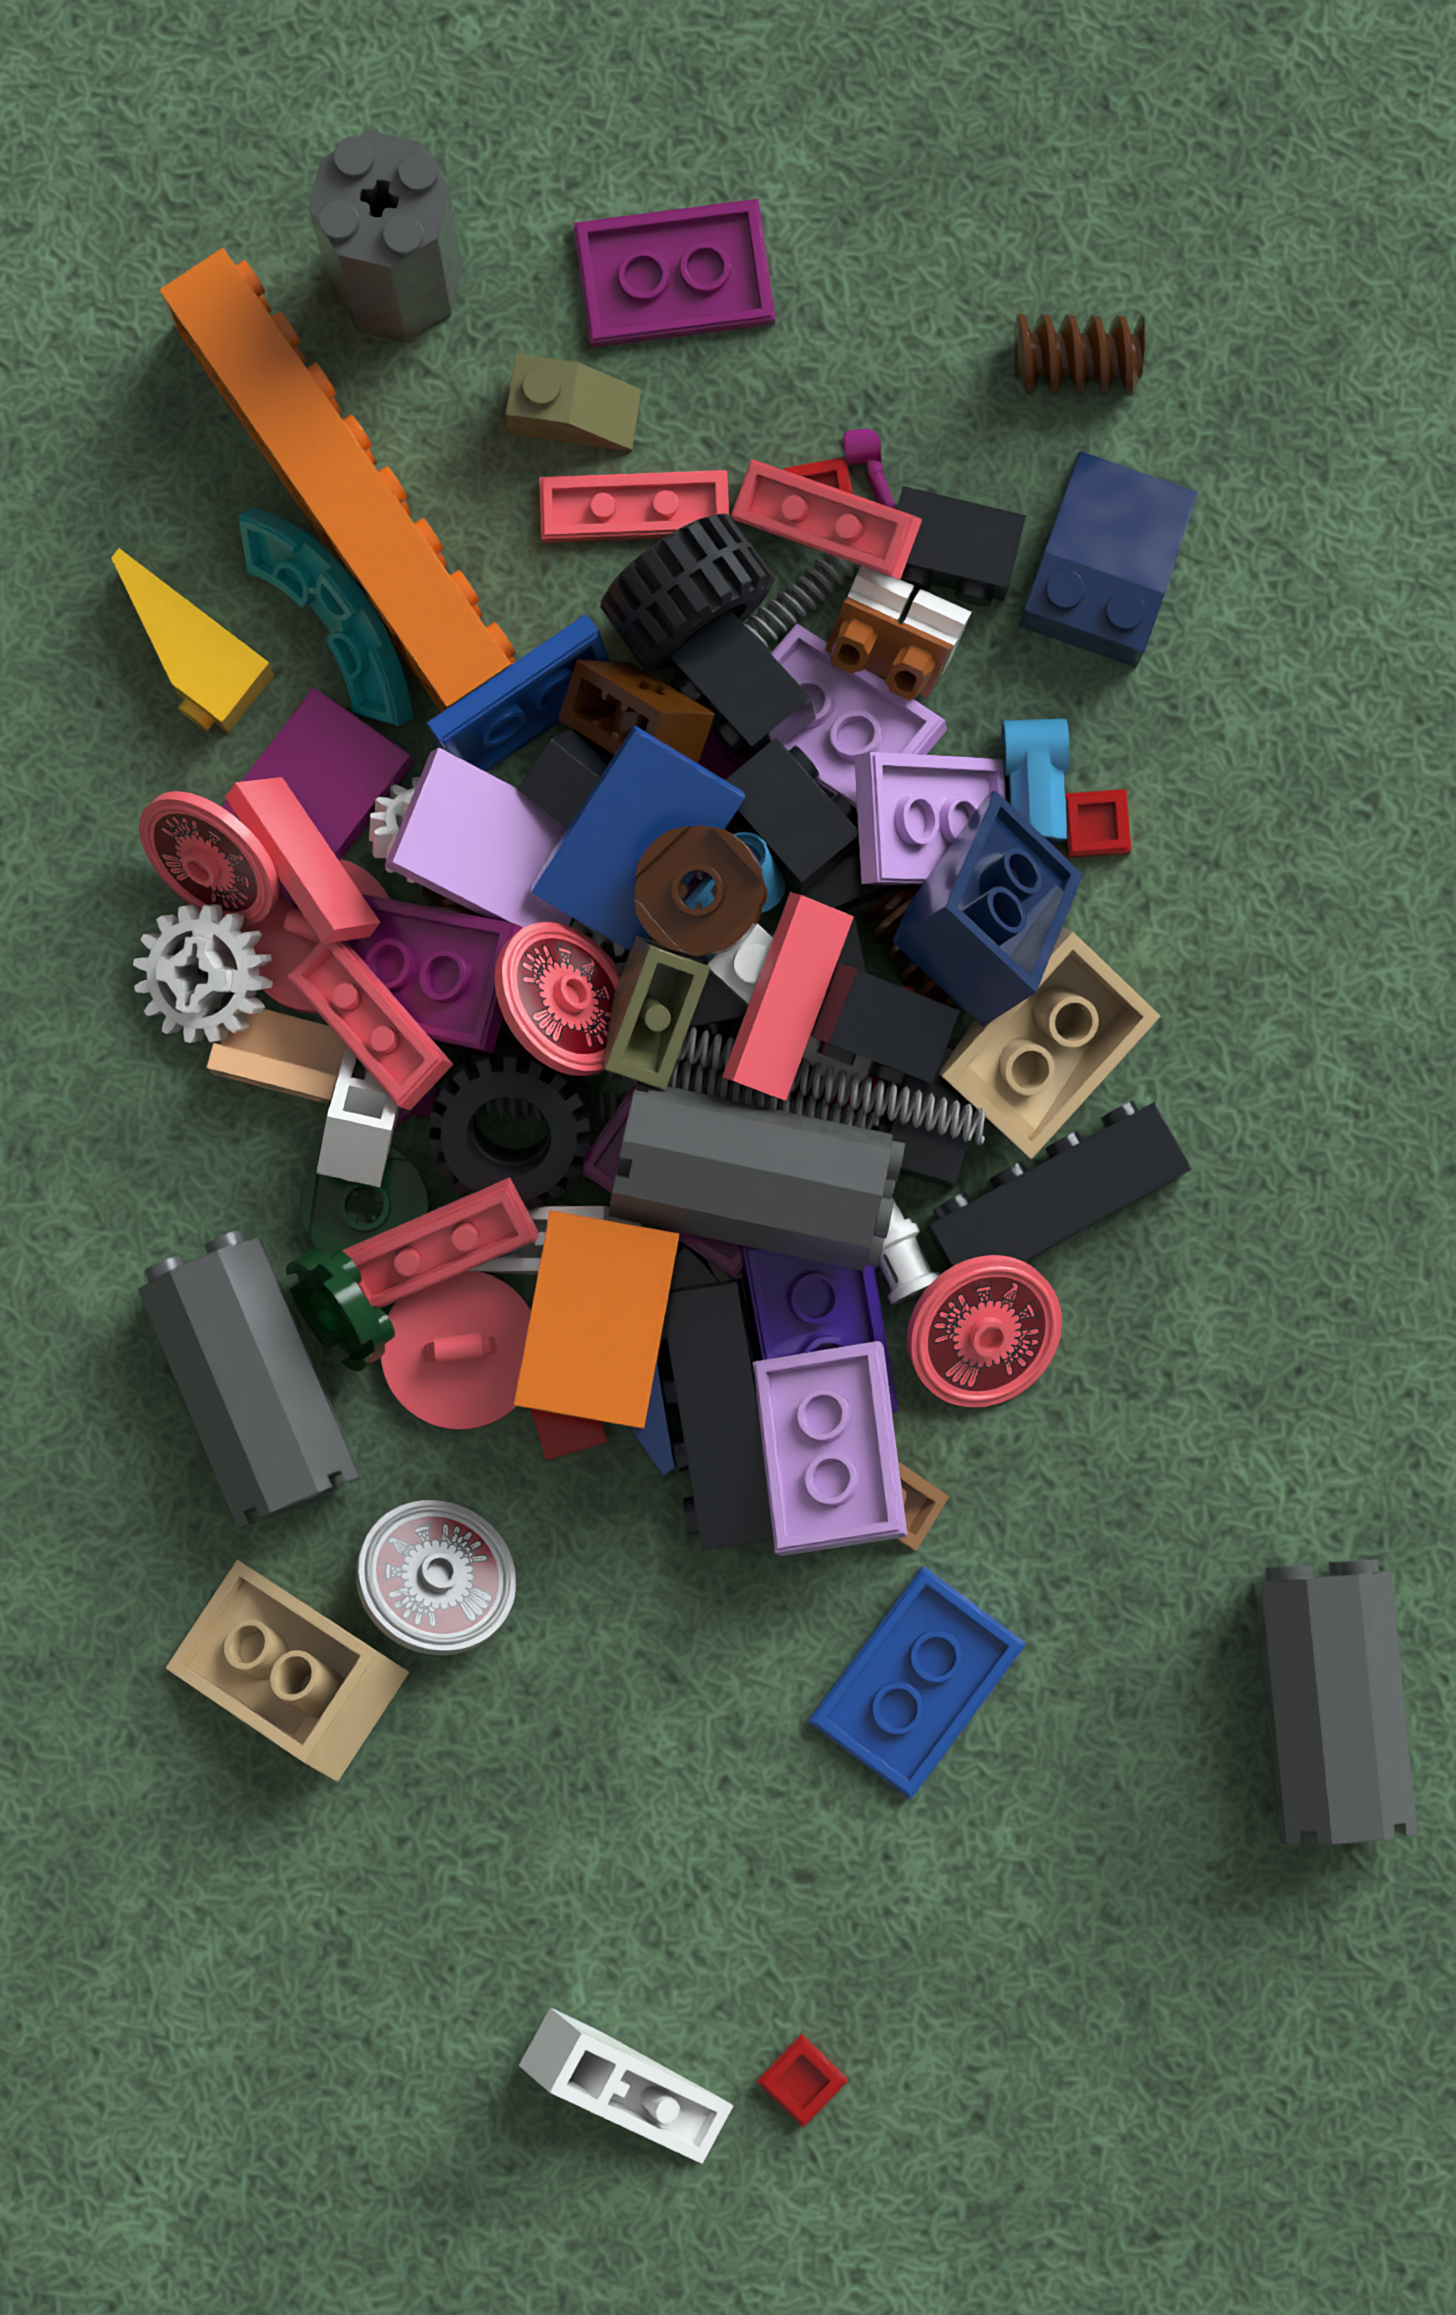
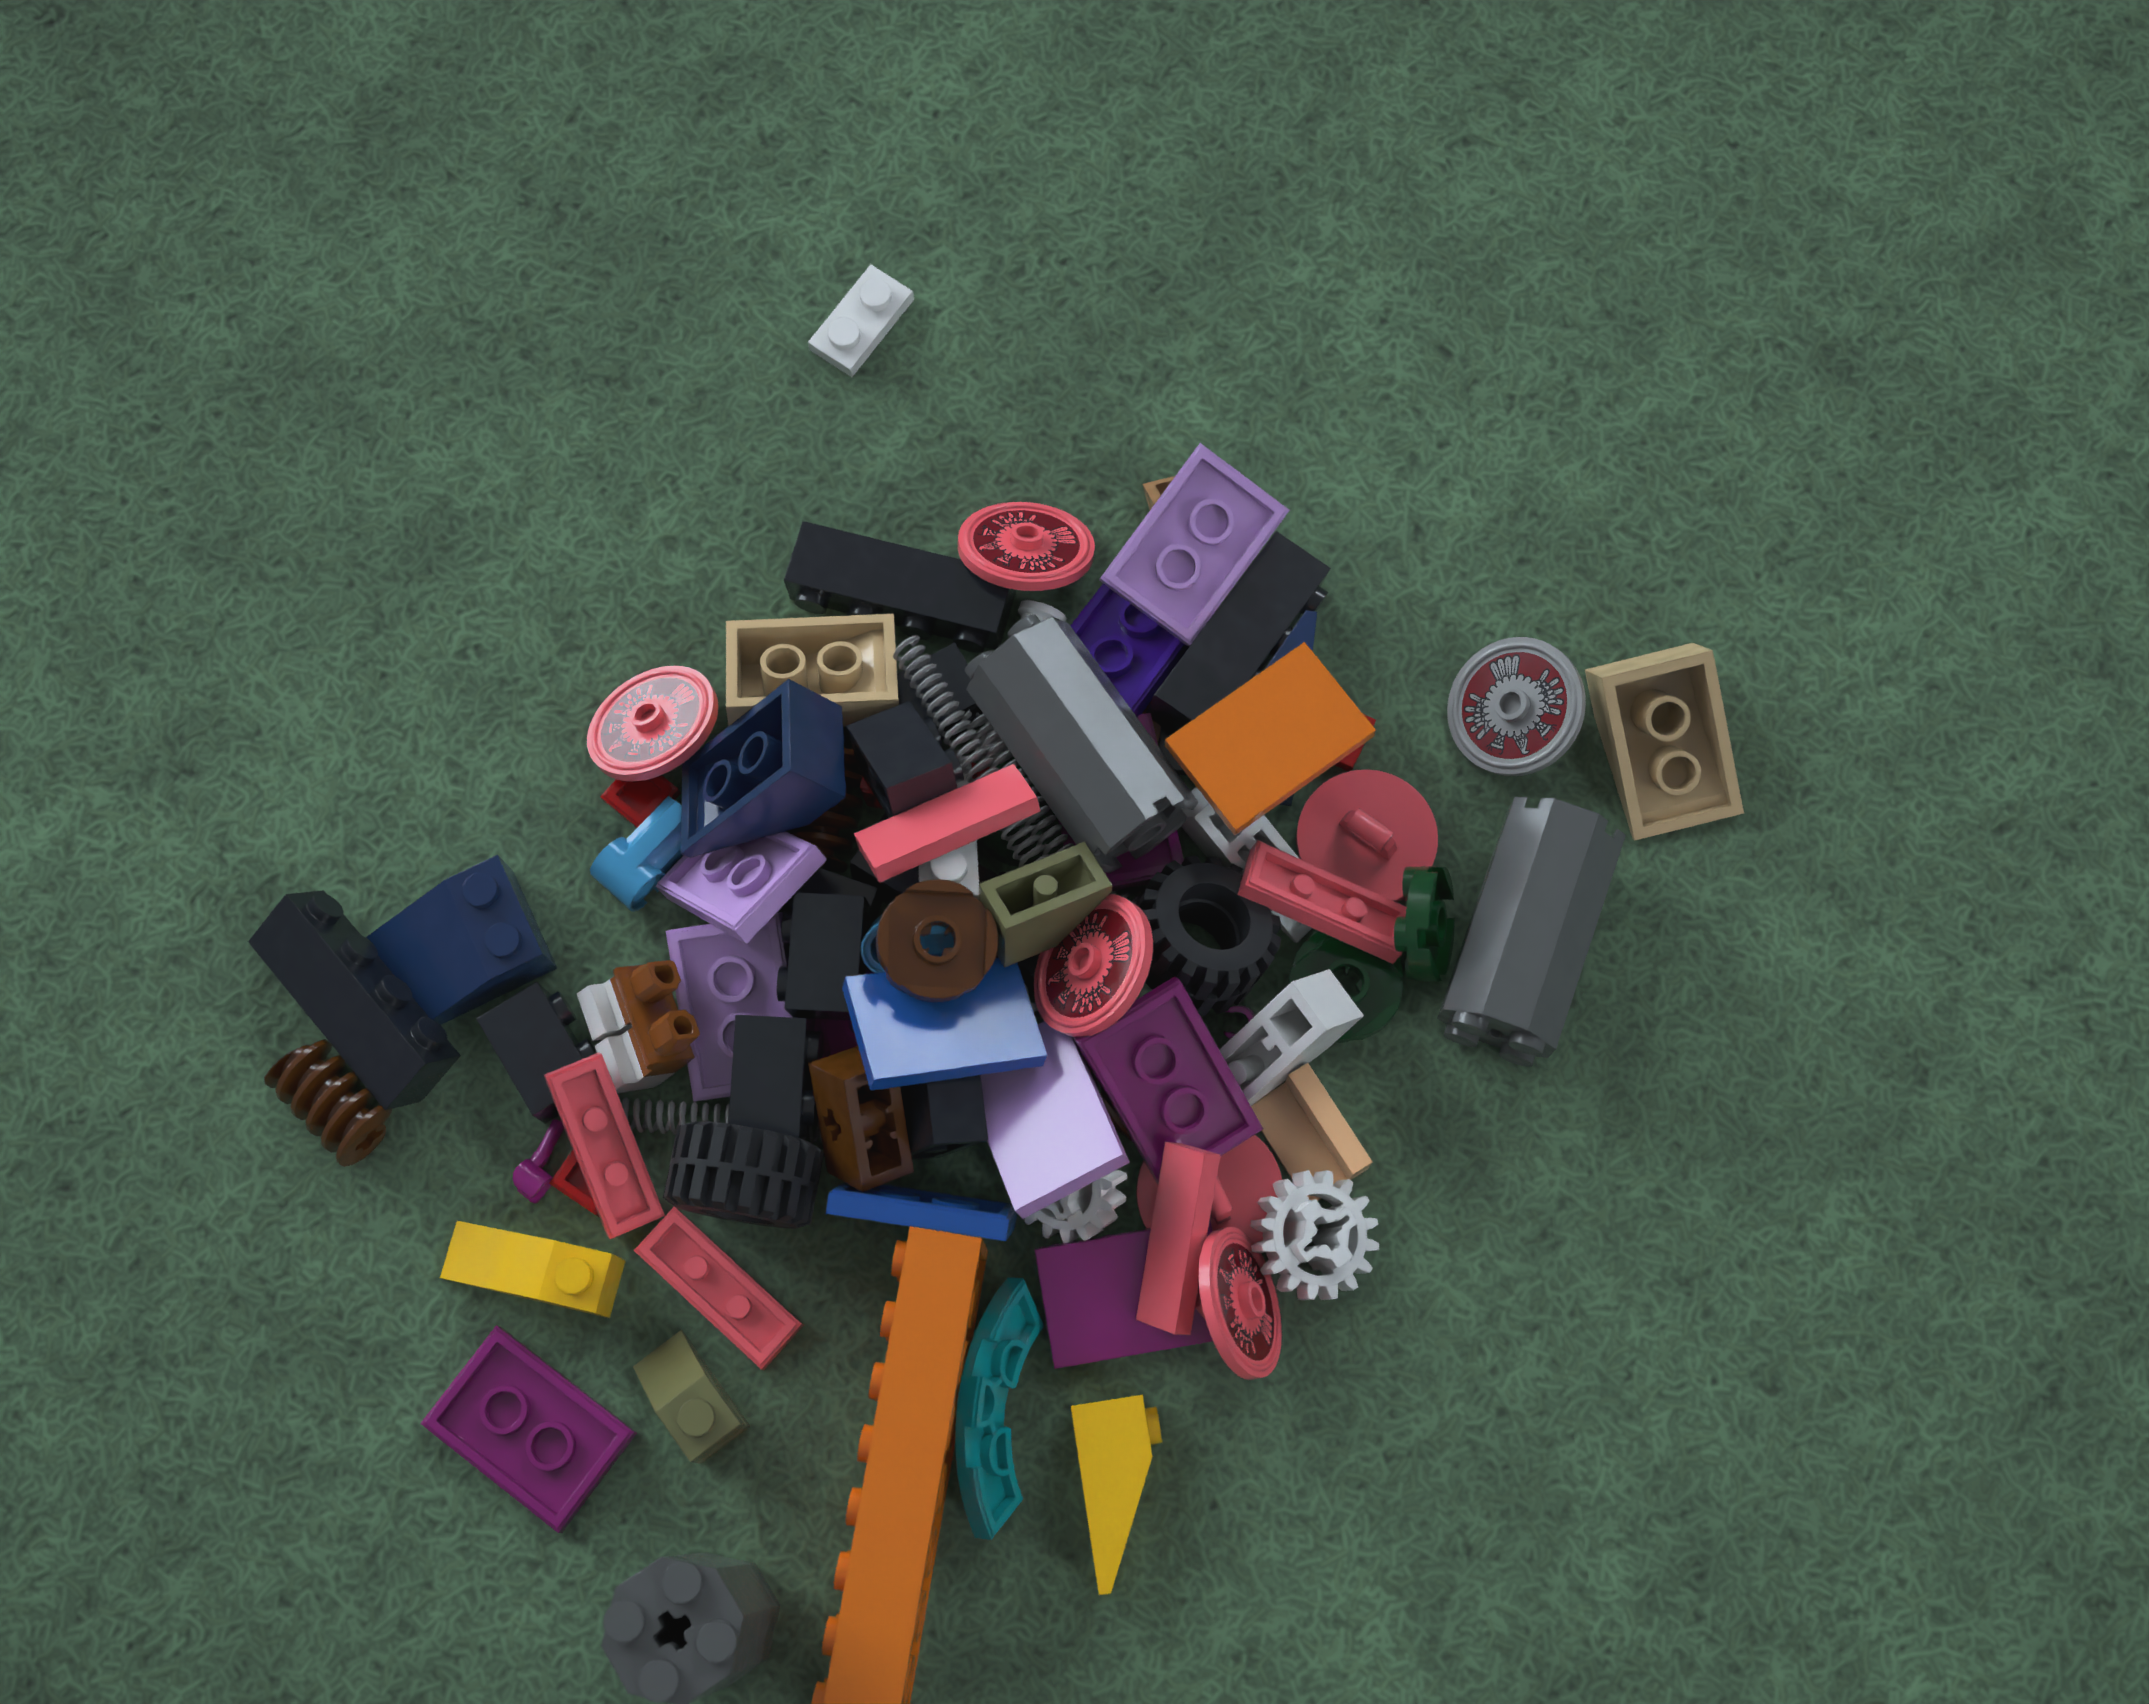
camera: 125 degrees left, 10 degrees down
(370, 1022) = (1235, 1077): coral tile -> none
(624, 2086) = (1672, 327): white slope -> none
(788, 383) = (534, 1268): none -> yellow slope
(802, 2080) = (1552, 244): red tile -> none
(916, 1682) = (1269, 396): blue tile -> none
(1141, 884) = (652, 723): none -> coral shield
(1144, 443) = (354, 998): none -> black brick
(1334, 1703) = (1034, 158): dark grey brick -> none
(1344, 1416) = (861, 320): none -> white plate

